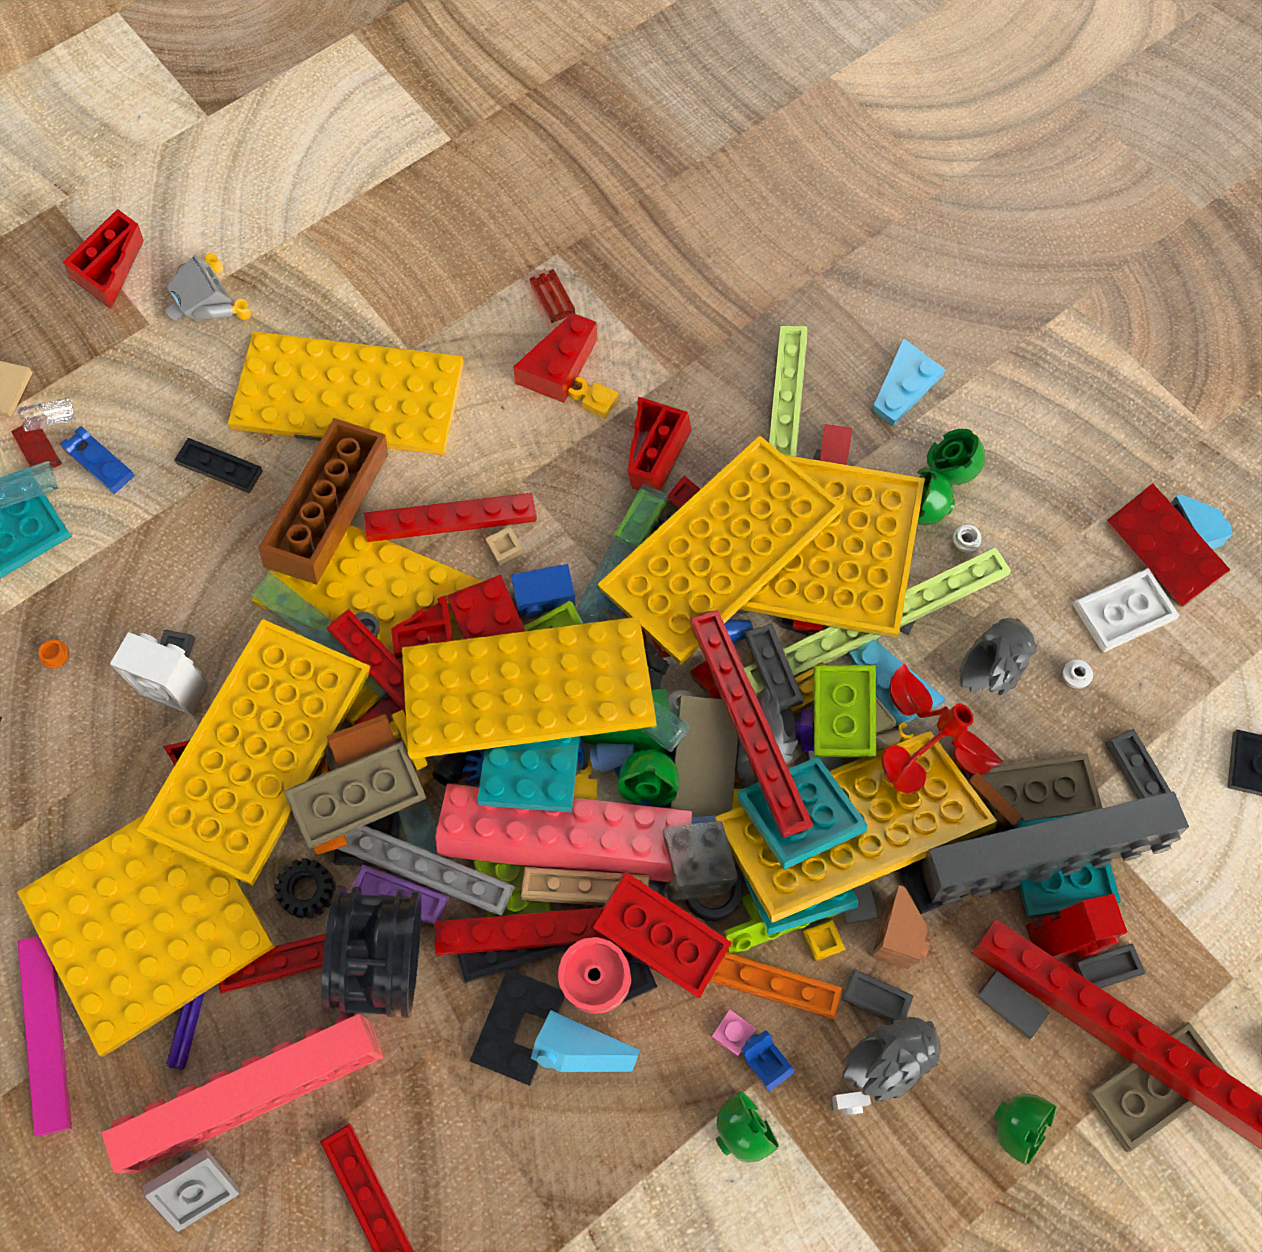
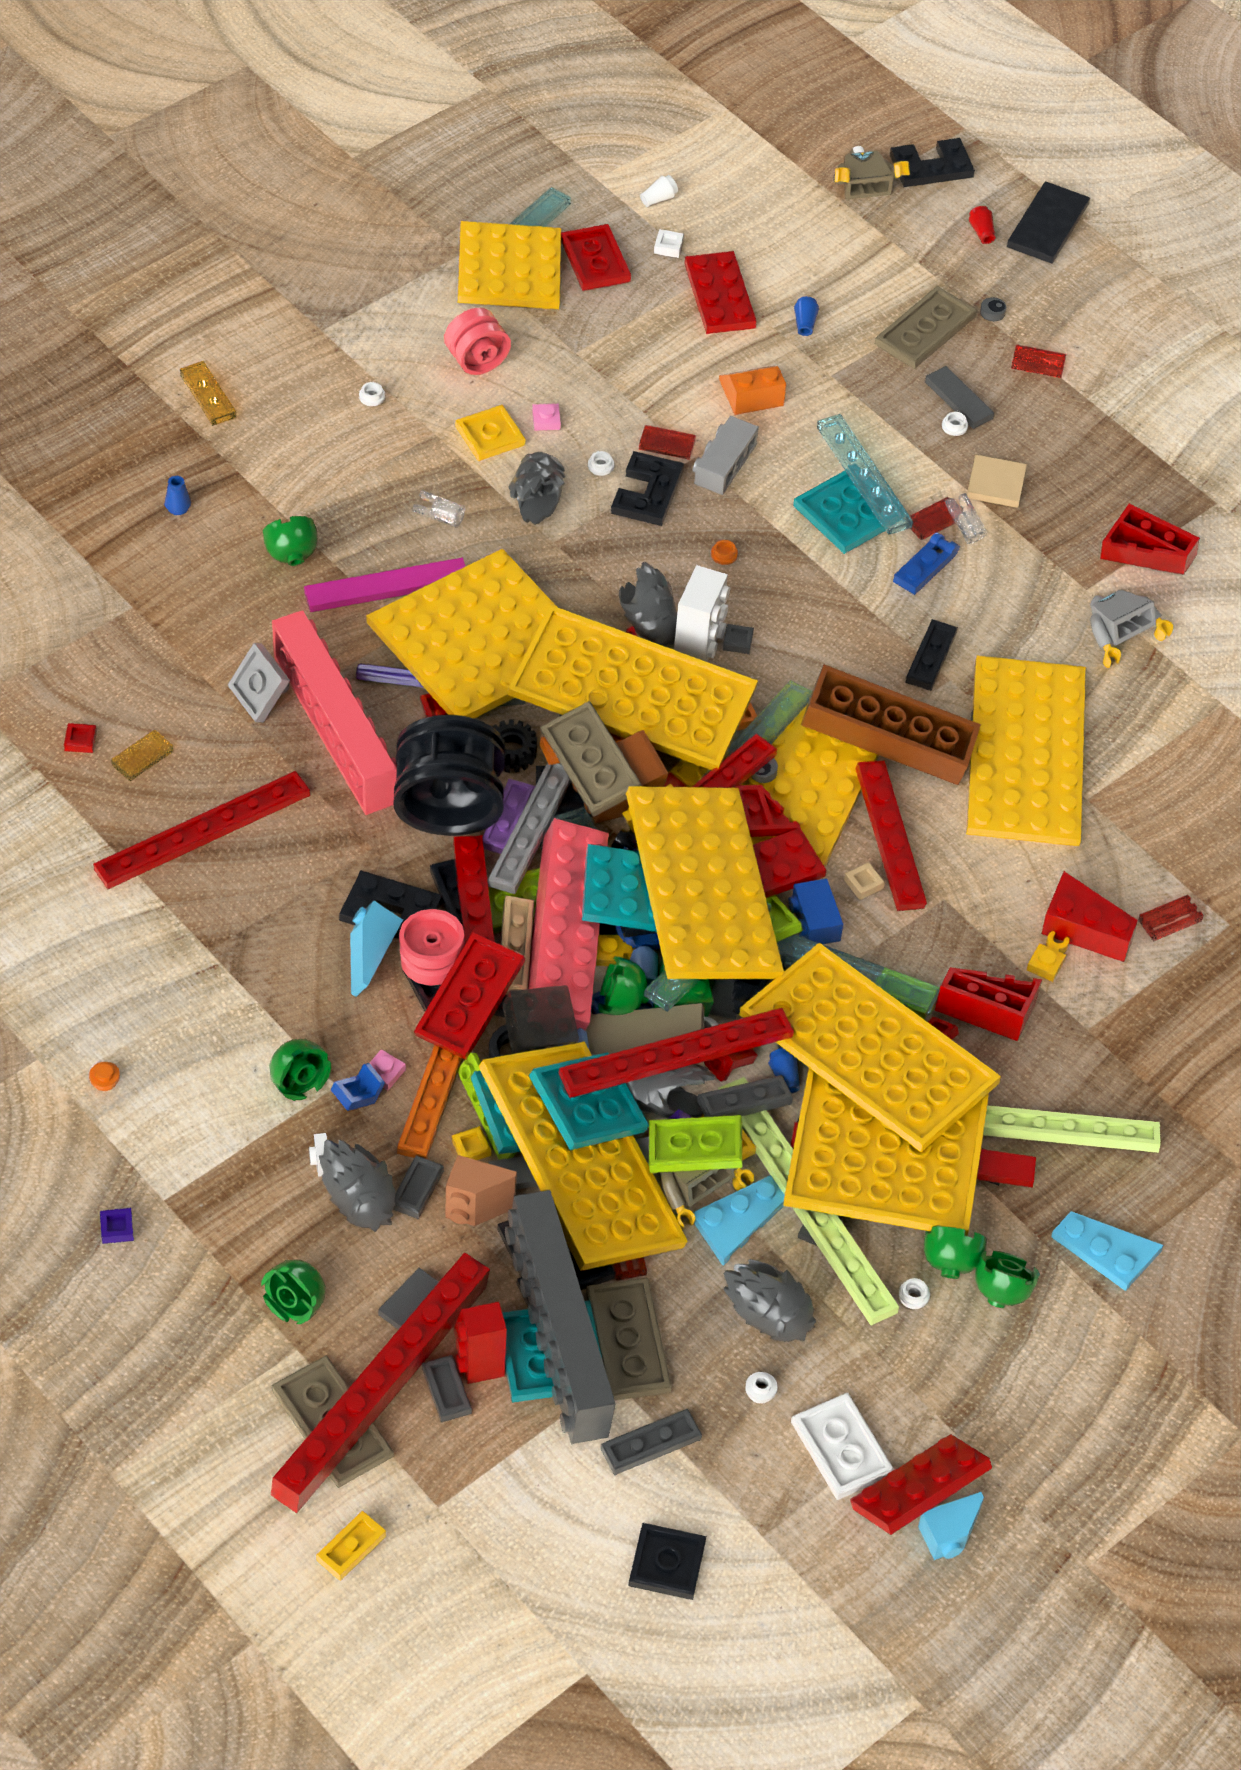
camera: 85 degrees right, 15 degrees down
(130, 729) = (650, 606): none -> dark grey head
(970, 752) = (720, 1213): red plant -> none
(1004, 811) = (611, 1282): dark orange plate -> none

